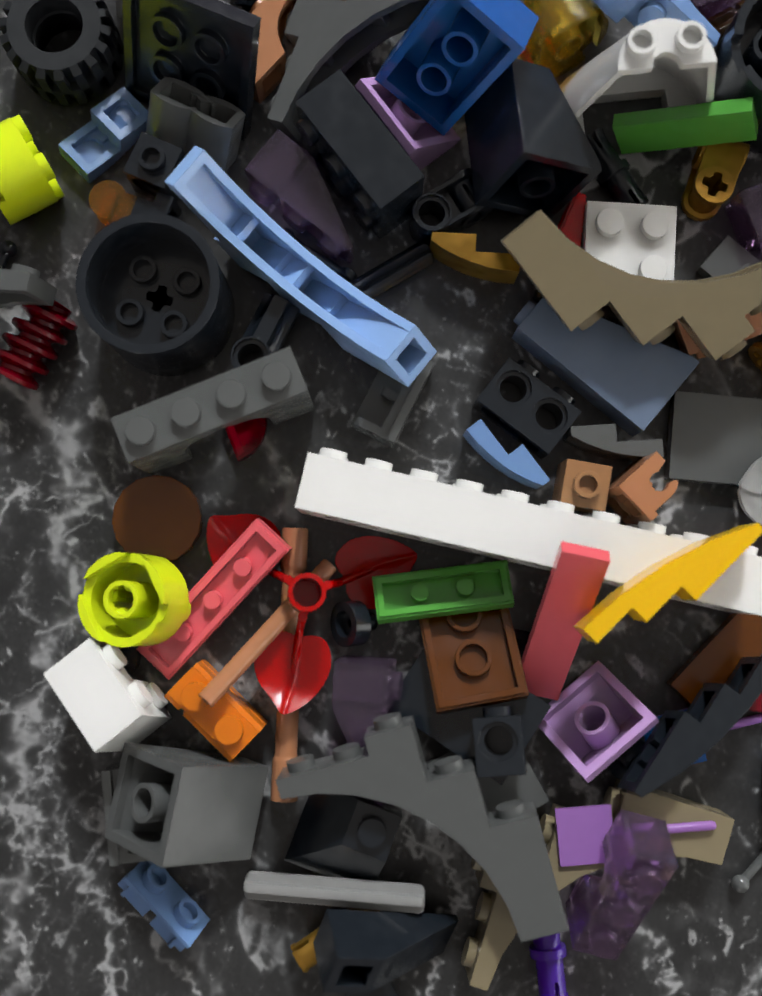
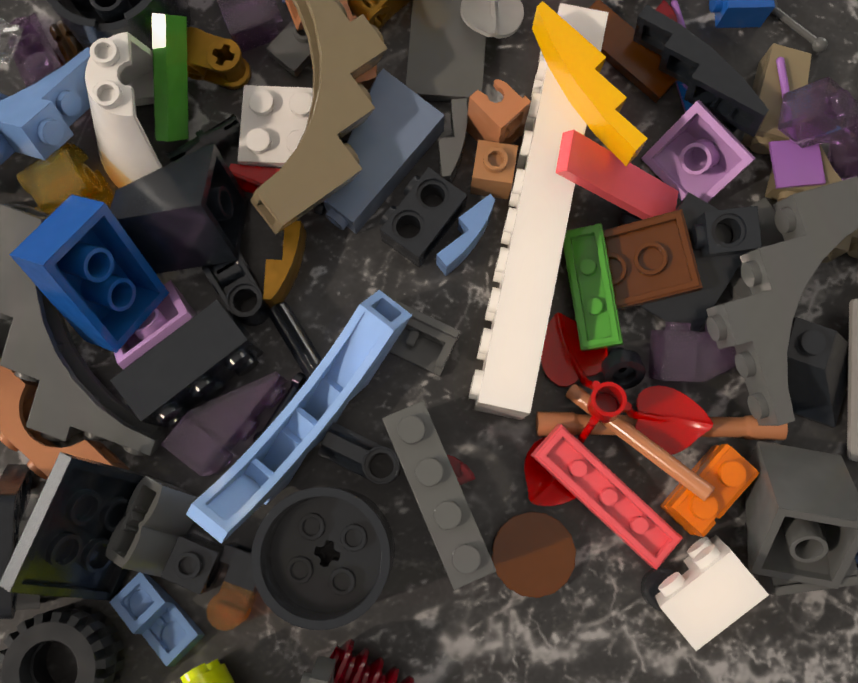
camera: 85 degrees left, 5 degrees down
(133, 600) = (622, 593): neon yellow brick -> none

